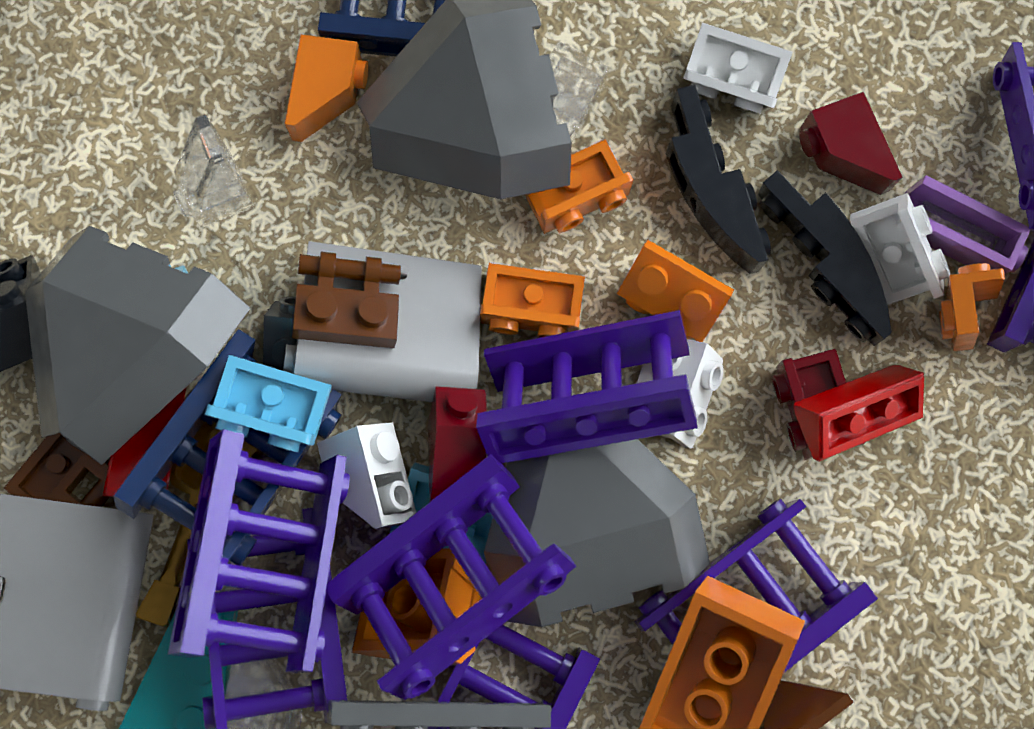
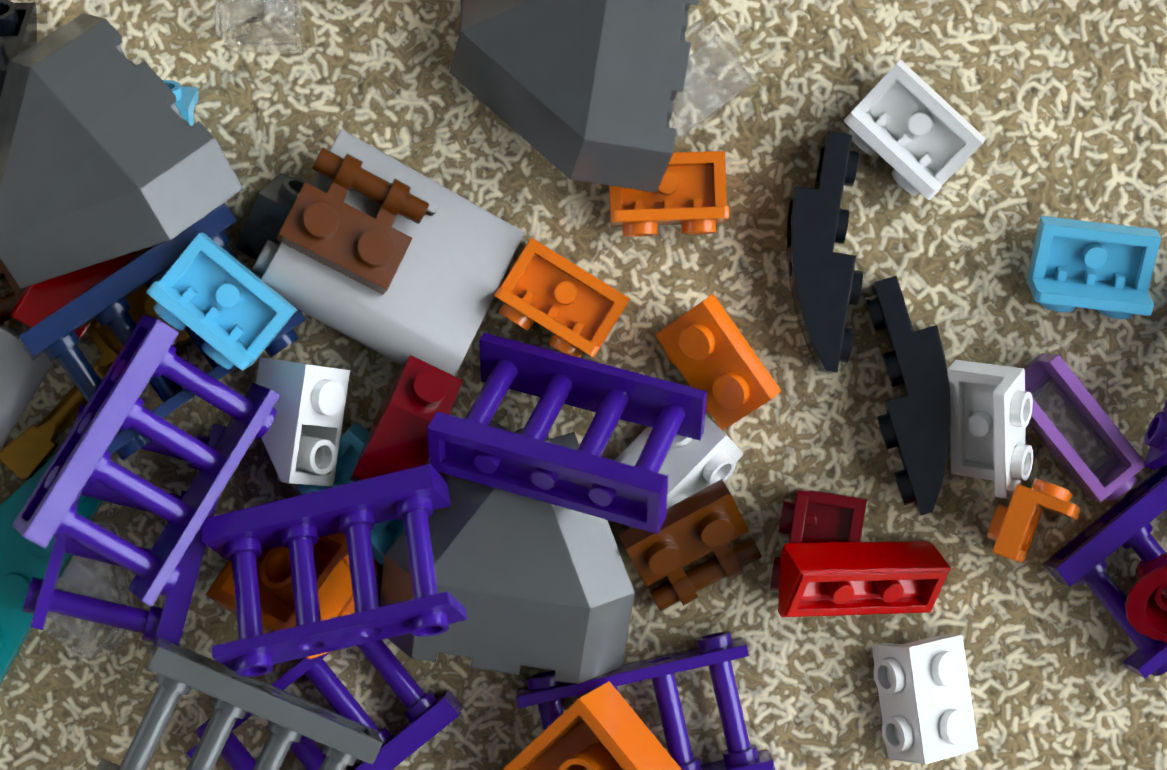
camera: 25 degrees right, 10 degrees up
(721, 424) = (689, 532): none -> reddish brown plate
(850, 144) = (998, 275): dark red slope -> none
(918, 106) = (1093, 267): none -> medium azure bracket
(953, 485) = (925, 699): none -> white bracket

